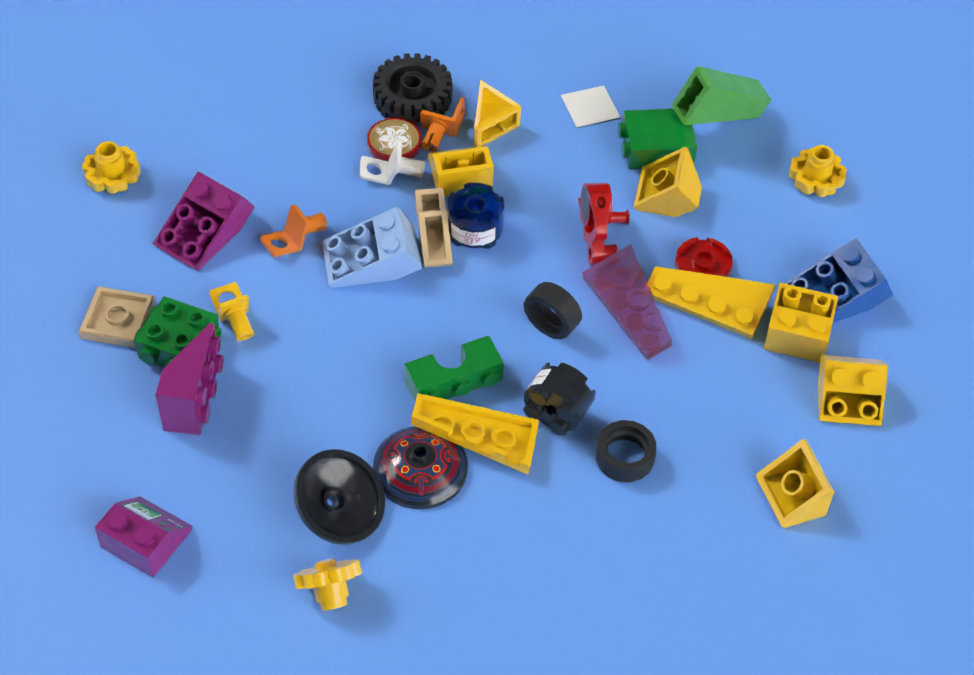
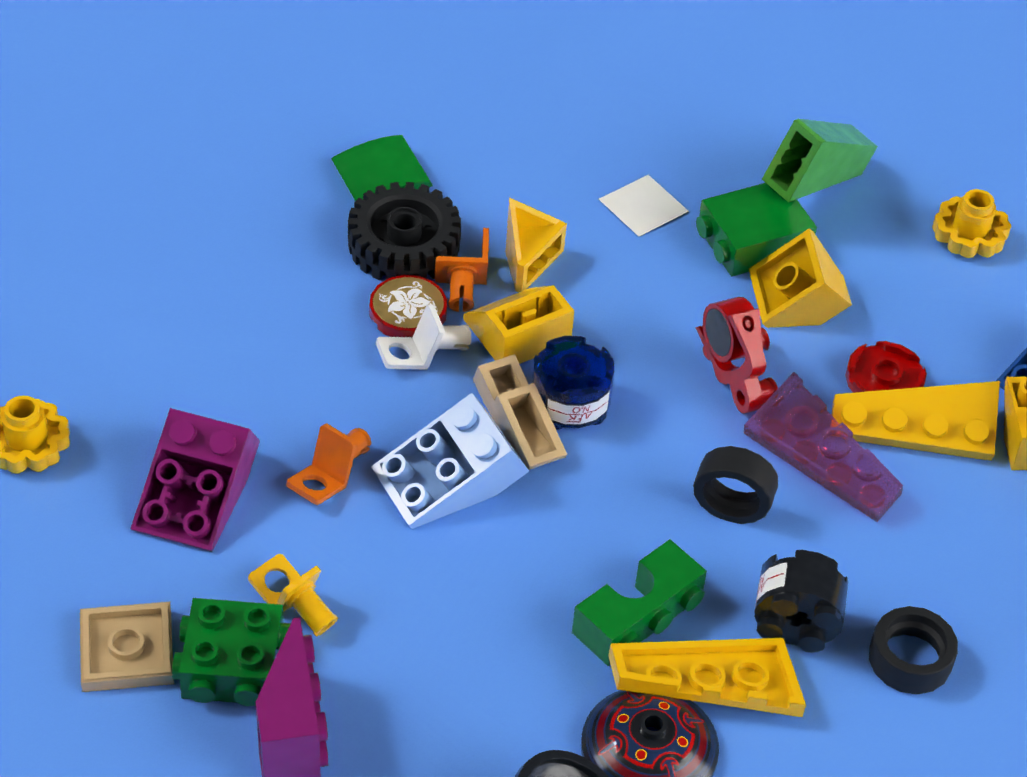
camera: 20 degrees left, 5 degrees down
(418, 37) = (378, 164): none -> green slope

